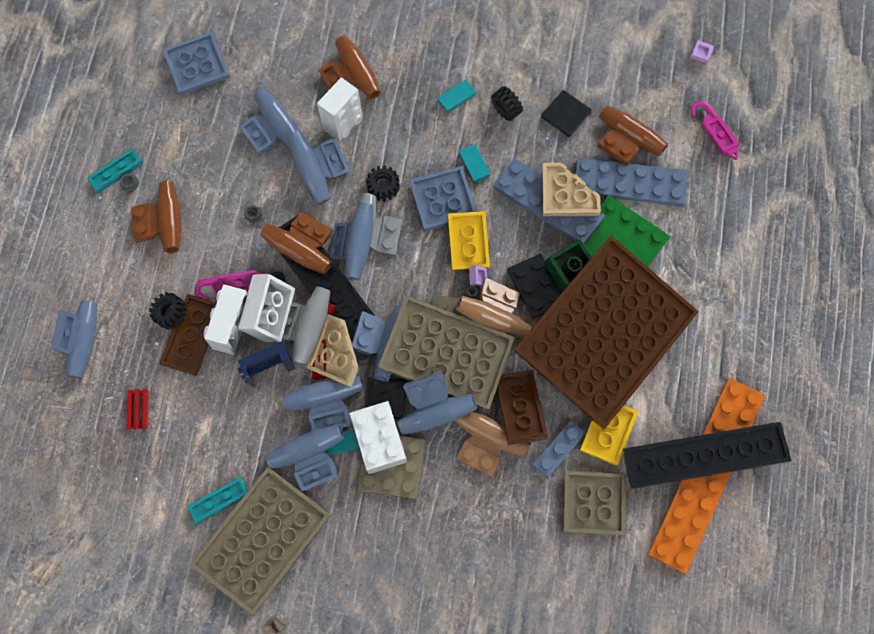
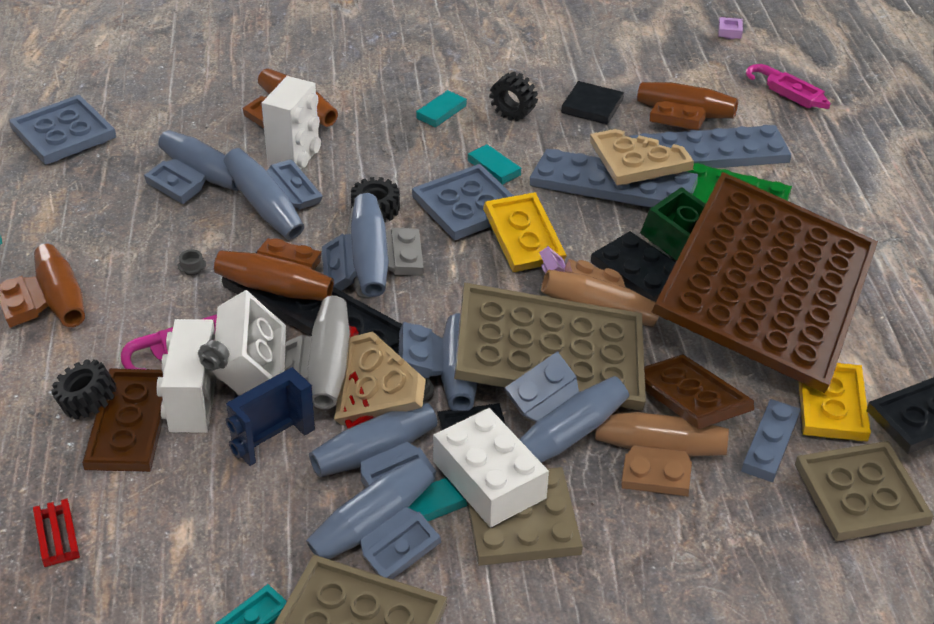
camera: 20 degrees left, 30 degrees down
(237, 324) = (213, 355): none -> dark grey plate

